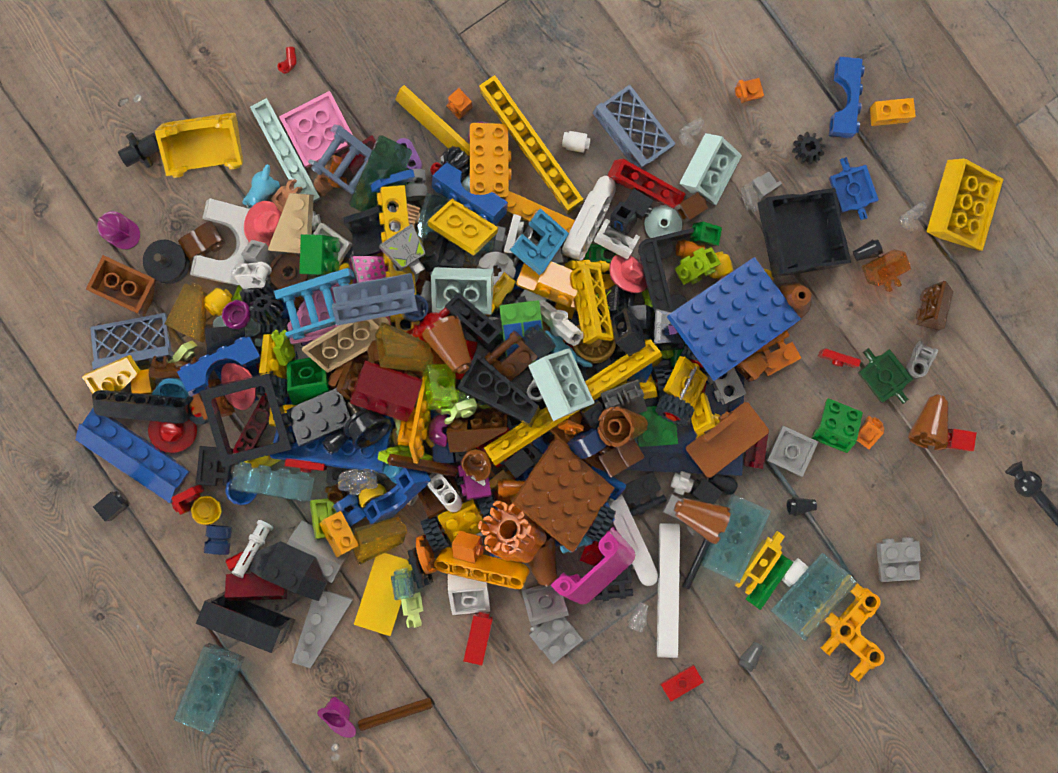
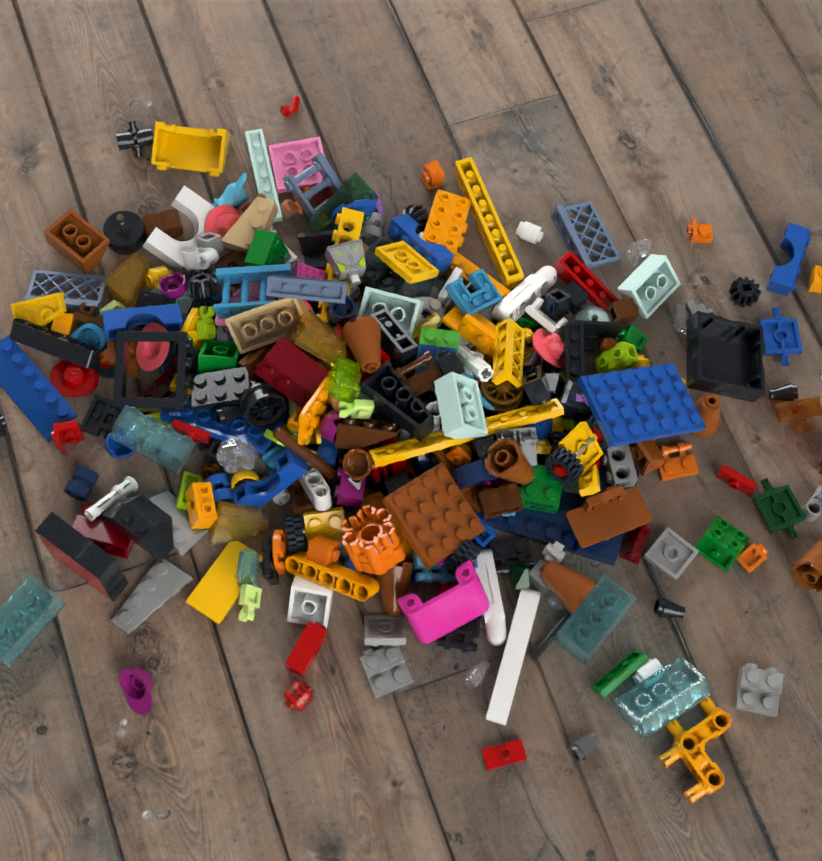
camera: 10 degrees right, 20 degrees down
(118, 230) = (90, 199): magenta piece -> none
(206, 510) = (80, 453): yellow hair -> none
(395, 714) = (197, 703): reddish brown axle -> none
(430, 120) = (401, 180): yellow tile -> none
(483, 683) = (298, 696): none -> clear red head
(656, 516) = (519, 576): none -> dark green slope
(705, 491) = (577, 564): black brick -> none
(724, 483) = (595, 565): black cone -> none
(762, 561) = (616, 650): yellow hinge -> none

